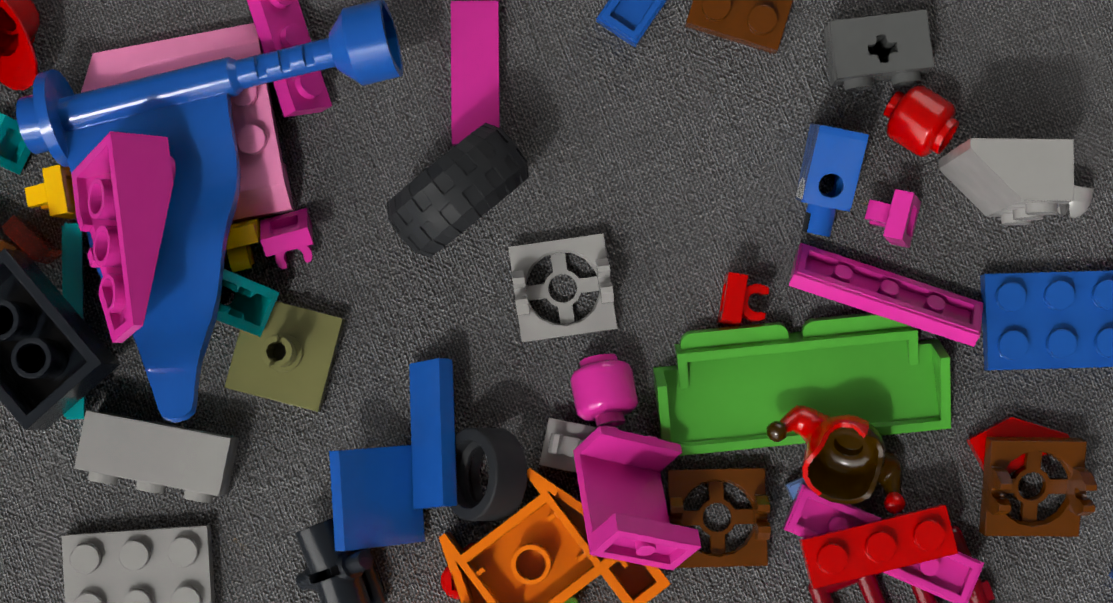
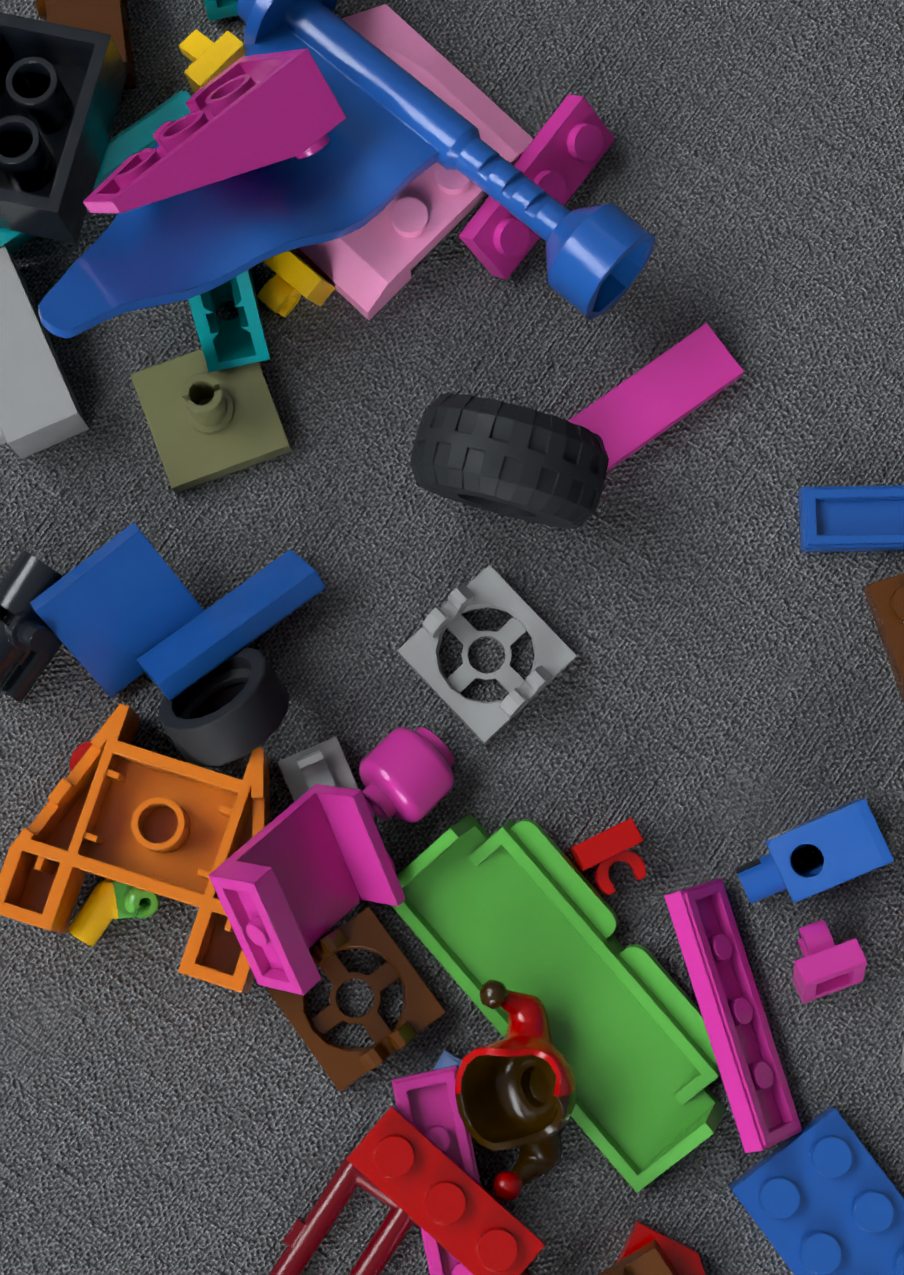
camera: 55 degrees right, 5 degrees down
(30, 240) = (147, 73): clear red tile -> none
(285, 234) = (338, 324): dark pink tile -> none

